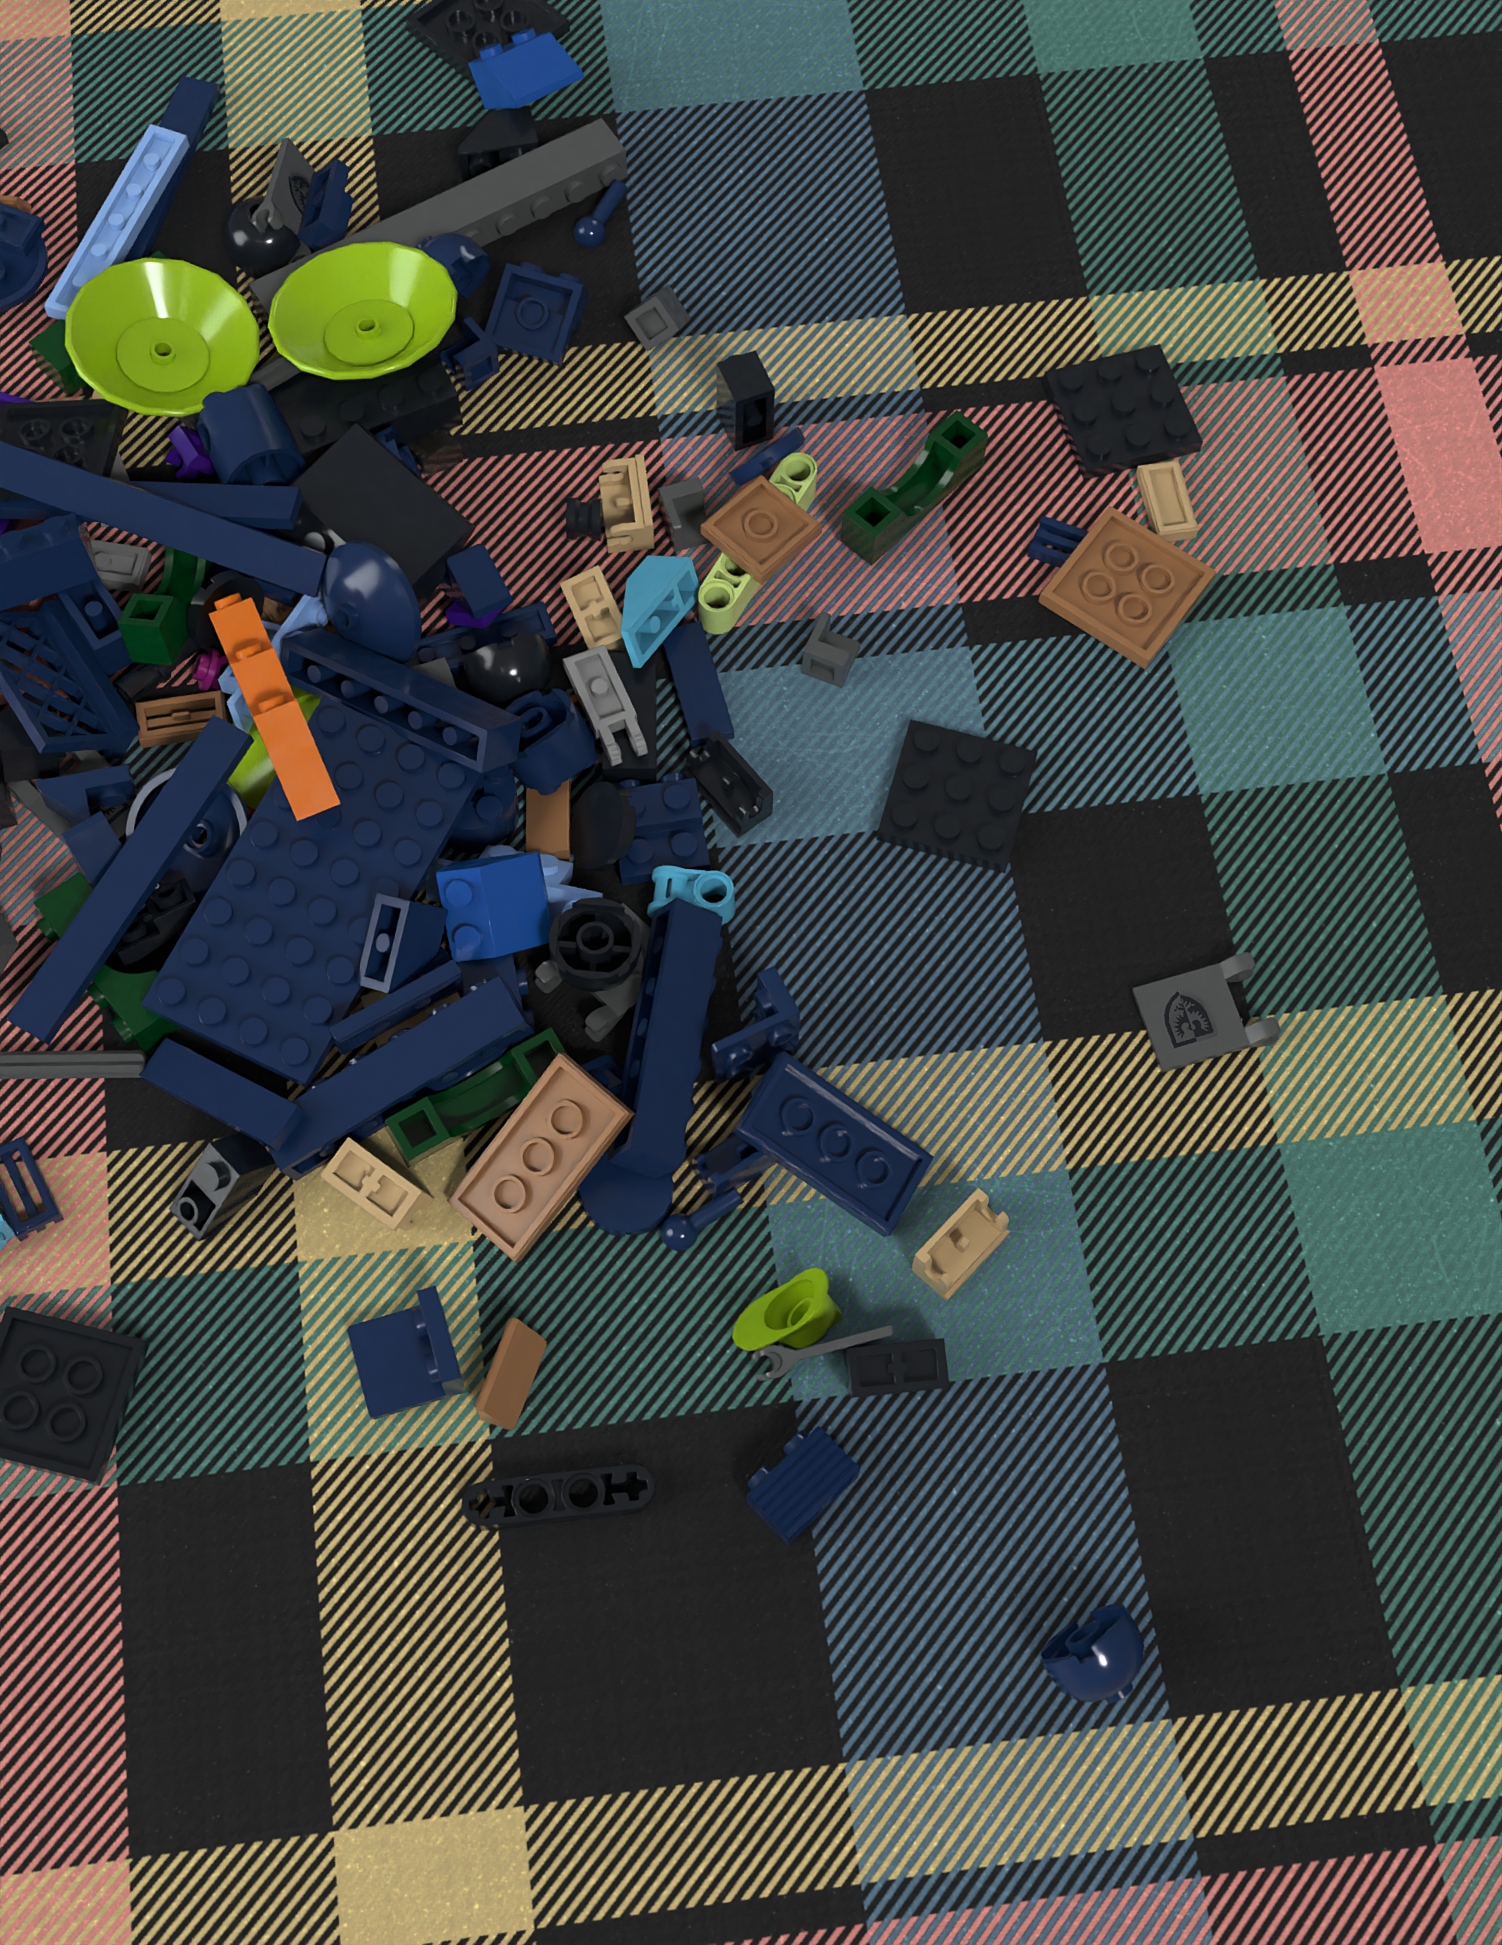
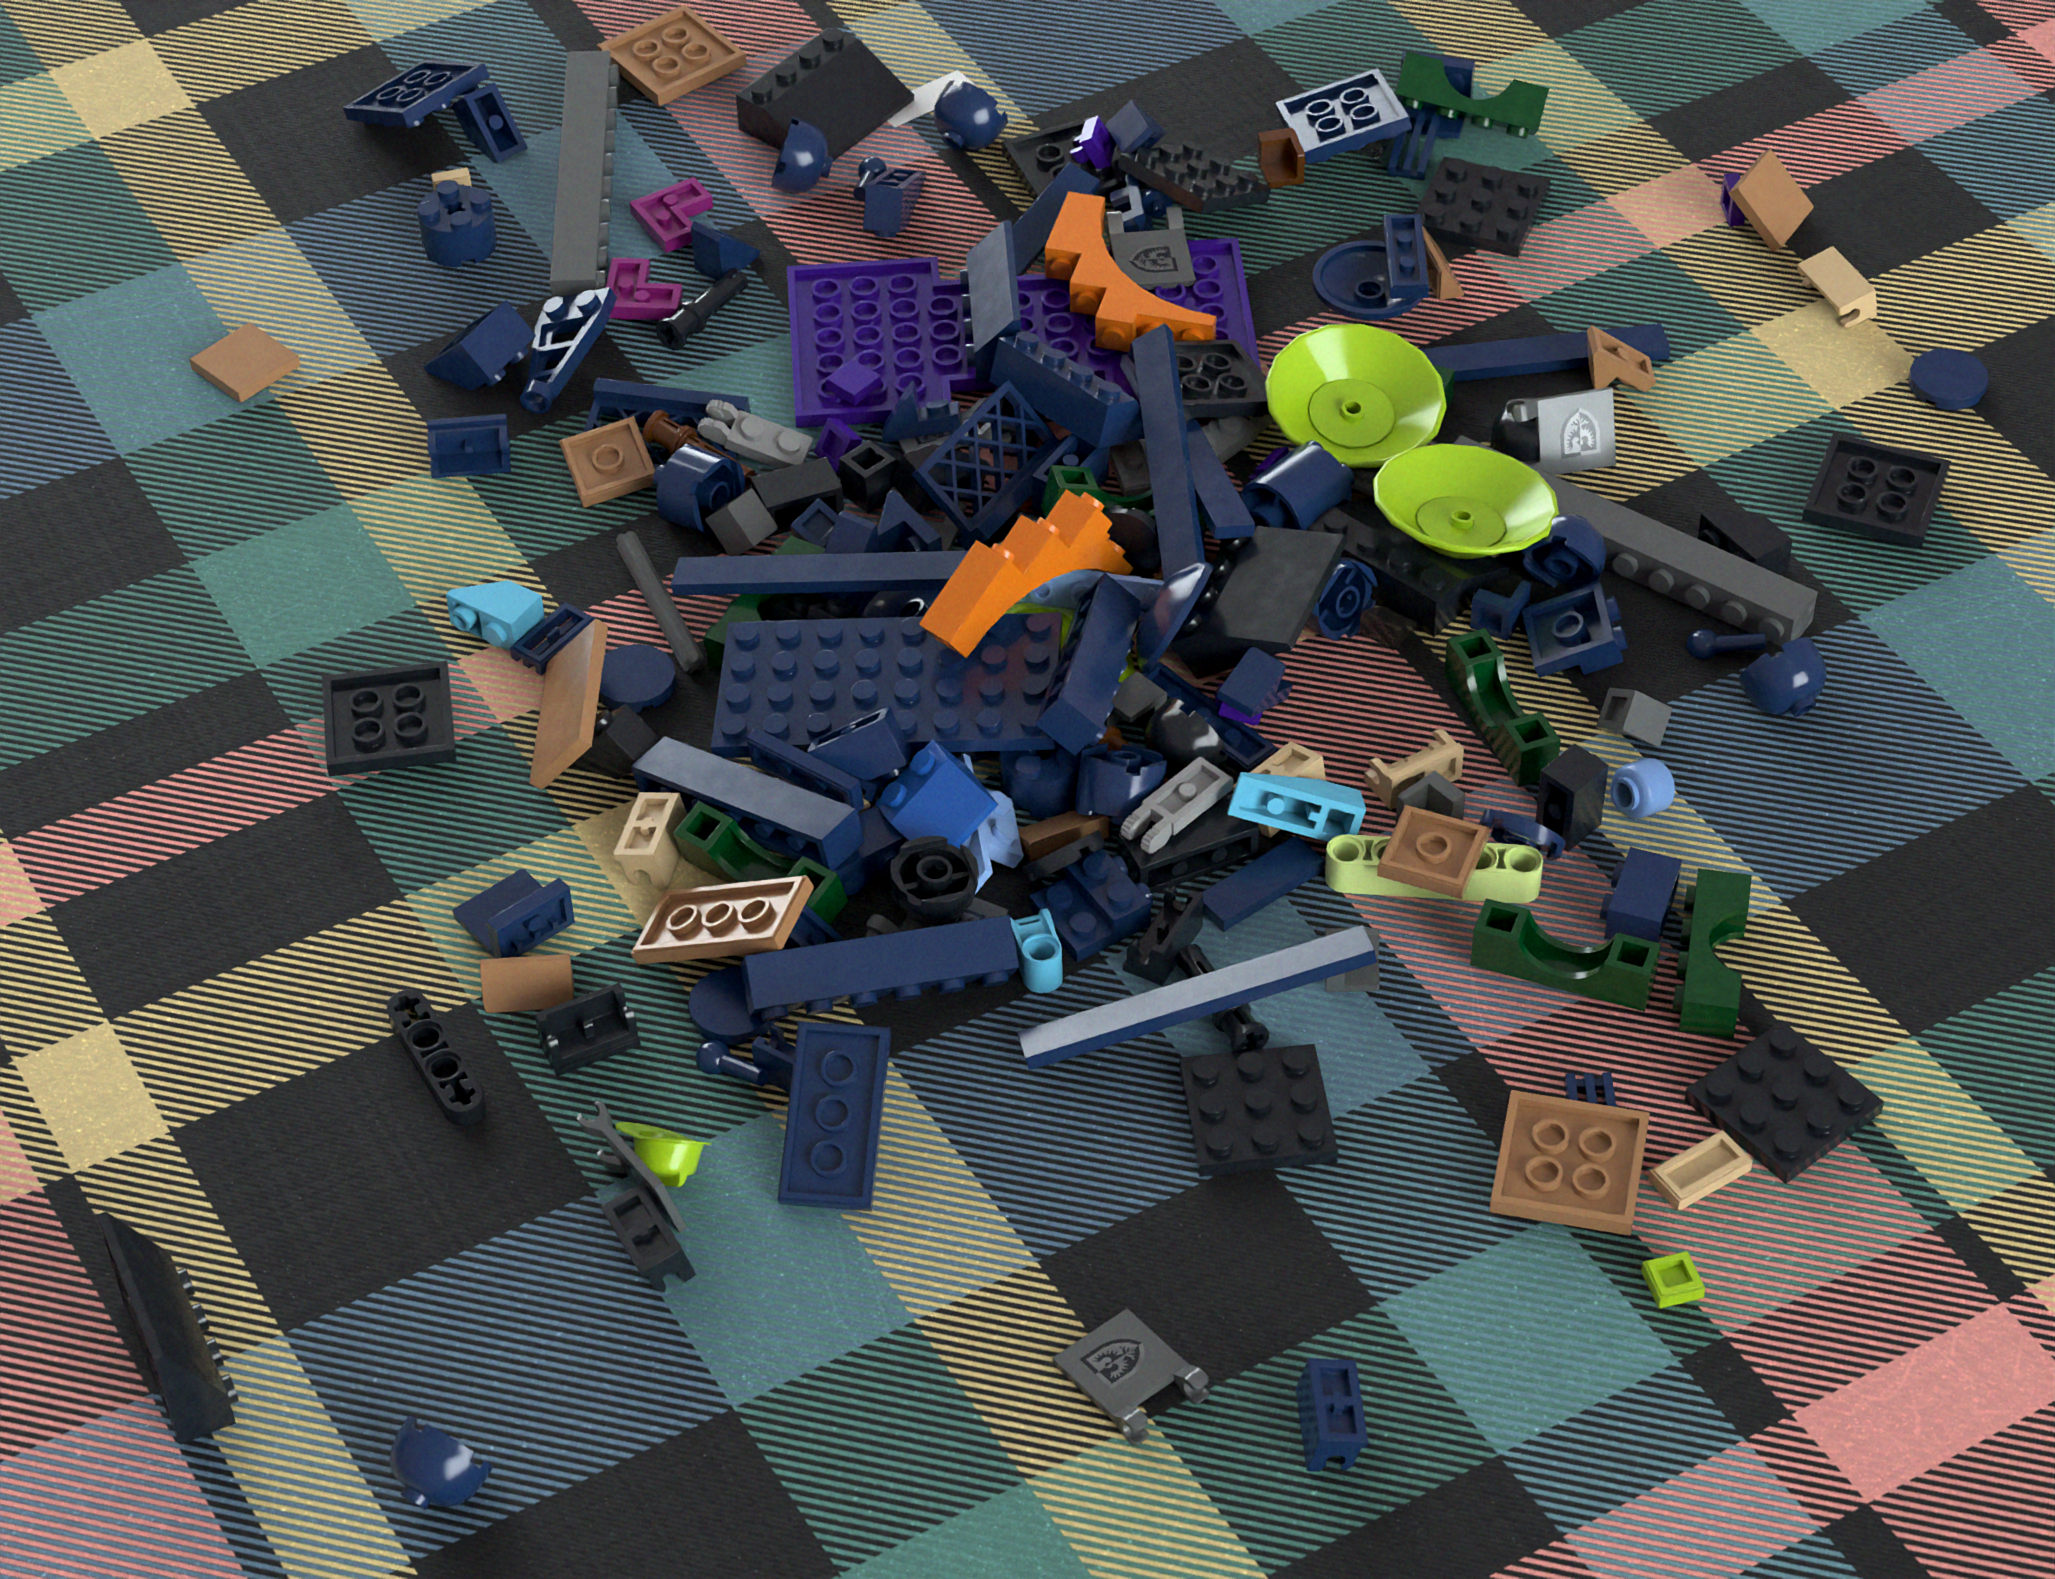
camera: 70 degrees right, 20 degrees down
(31, 873) = (815, 524): none -> dark blue panel
(121, 214) = (1494, 337): light blue plate -> none
(128, 1128) = (636, 677): none -> dark blue tile
(151, 1201) = (569, 704): none -> medium nougat tile
(215, 133) = (1614, 359): none -> medium nougat slope
(222, 1094) = (681, 709): dark blue tile -> none
(326, 207) = (1582, 460): dark blue panel -> none
(522, 70) = (1827, 519): blue slope -> none
(559, 409) = (1480, 680): none -> dark green arch
(584, 519) = (1377, 739): black wheel -> none
(603, 1337) = (587, 1029): none -> black hinge
(684, 188) = (1787, 680): none -> dark blue cylinder
(746, 336) = (1642, 788): none -> medium blue head
(773, 1033) = (926, 1038): dark blue bracket -> none
(801, 1483) = (511, 1210): dark blue brick -> none
(832, 789) = (1196, 997): none -> tile
(841, 1877) = (170, 1332): none -> black slope
(846, 770) = (1235, 1021): none -> black pin
(870, 406) = (1642, 895): none -> dark blue brick
(961, 1245) = (790, 1250): tan hinge -> none
(996, 405) = (1710, 989): none -> dark green arch
(1269, 571) = (1673, 1279): none -> lime tile
(1320, 875) = (1330, 1412): none -> dark blue hinge

